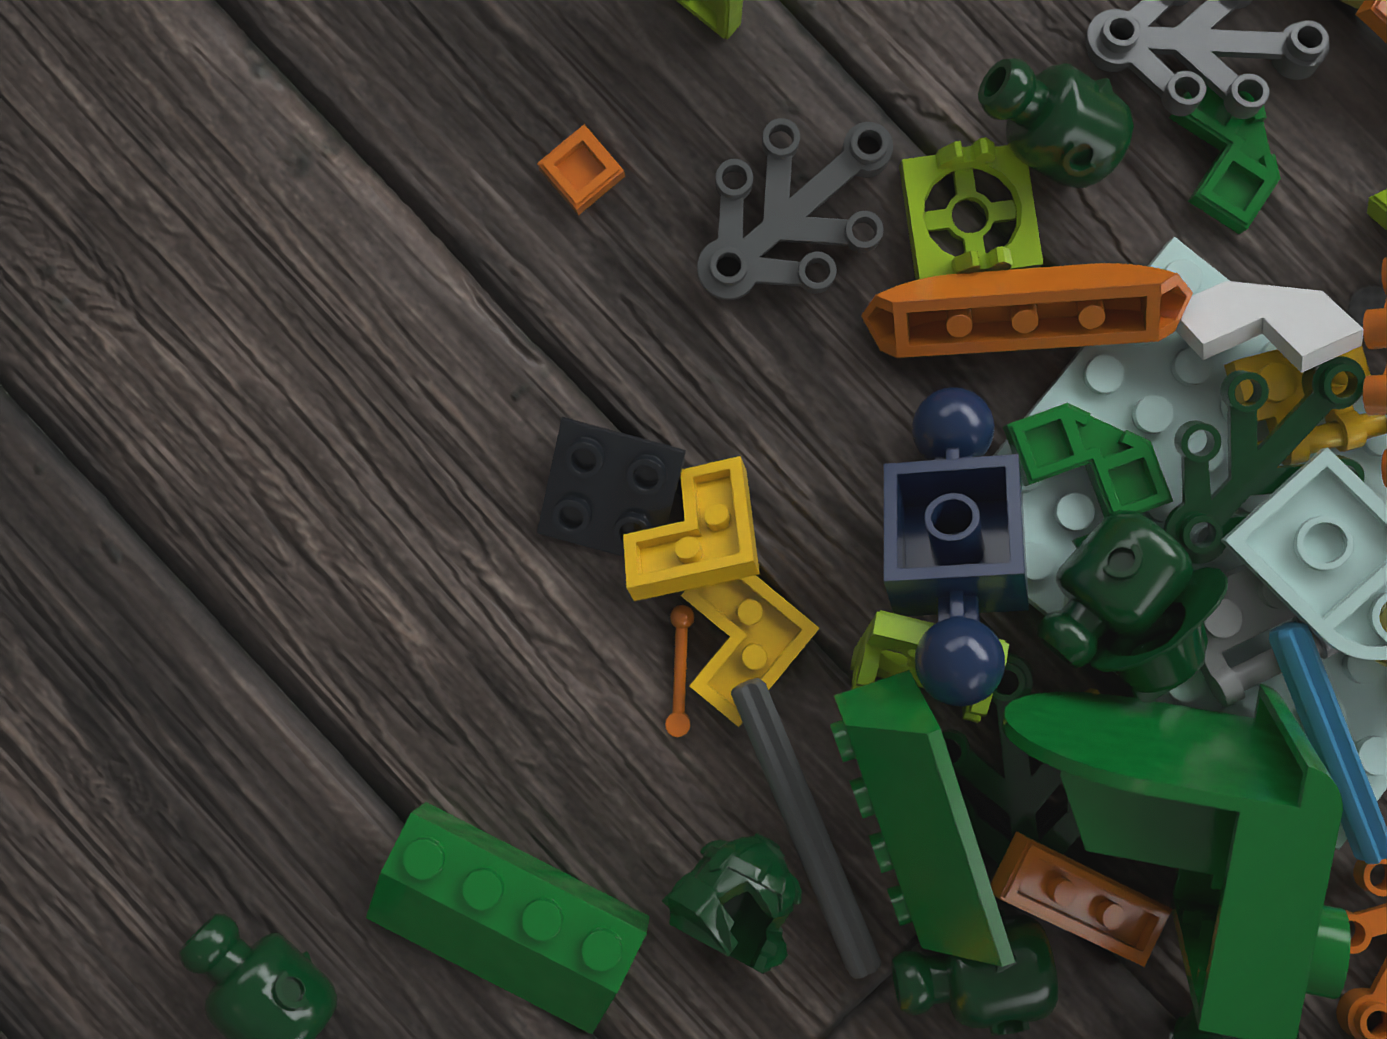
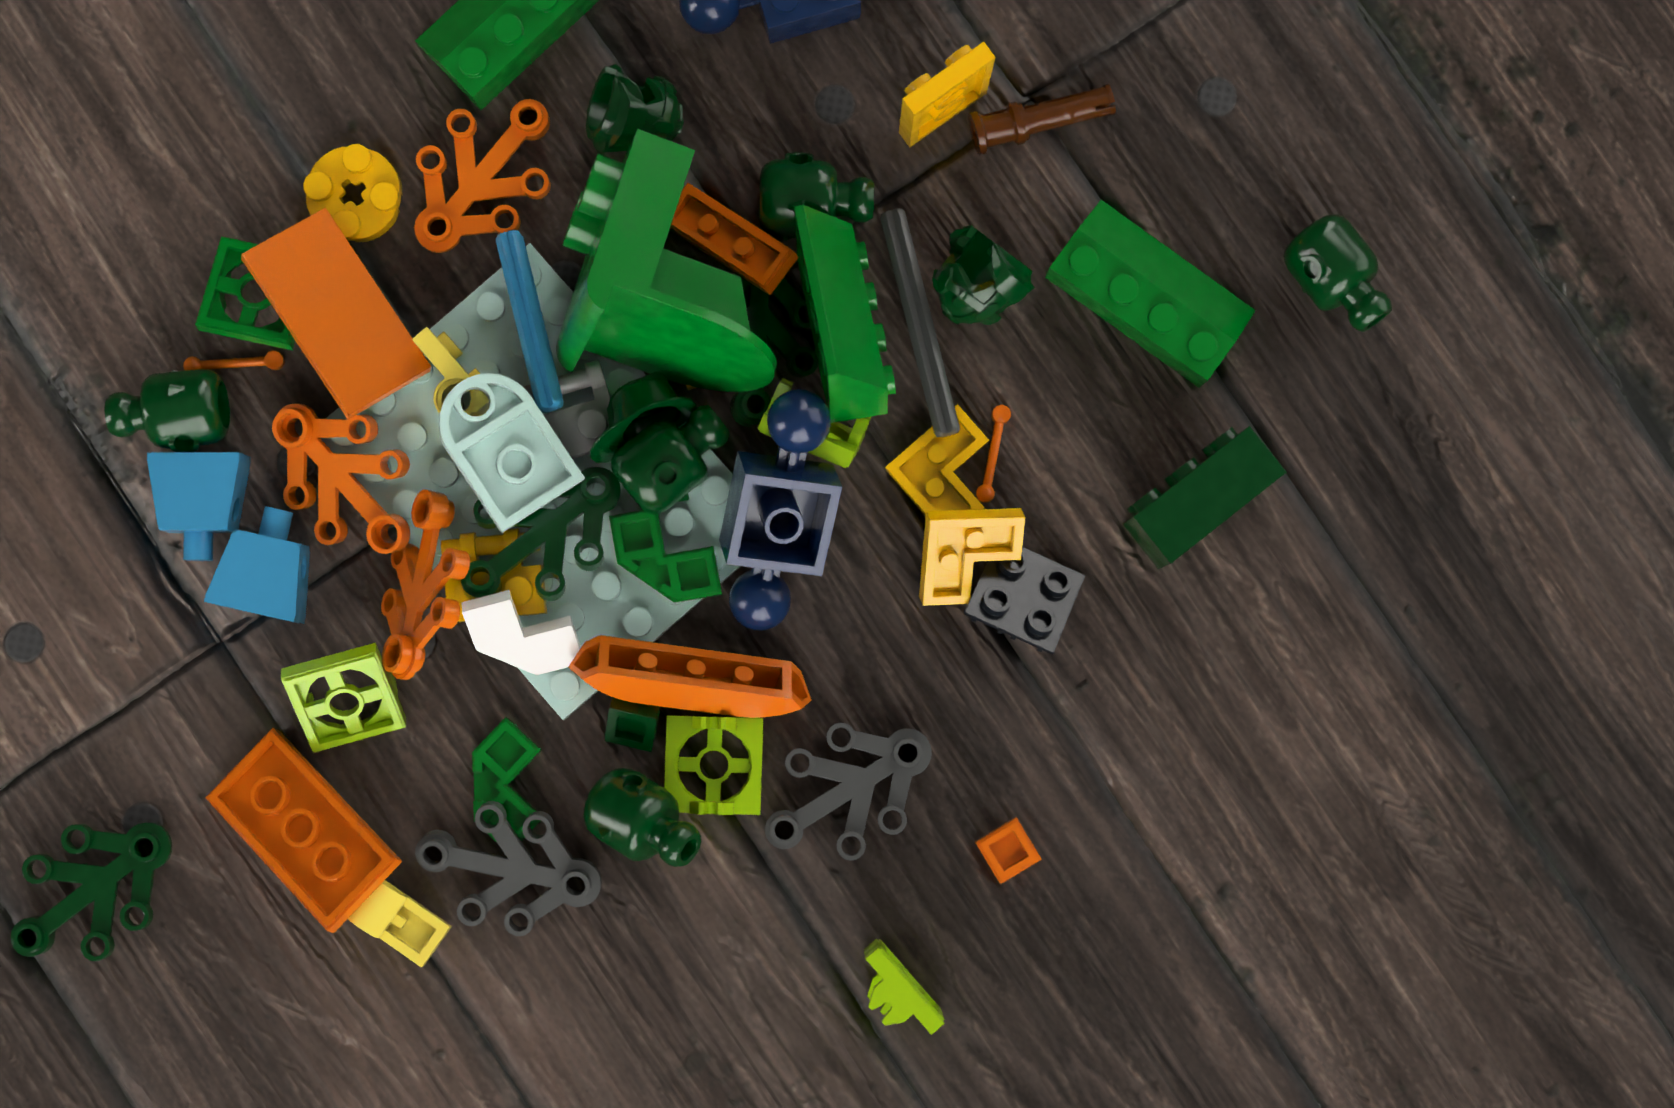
camera: 175 degrees left, 0 degrees up
(393, 657) = (1202, 495): none -> dark green brick
(1085, 241) = (632, 724): none -> dark green plate

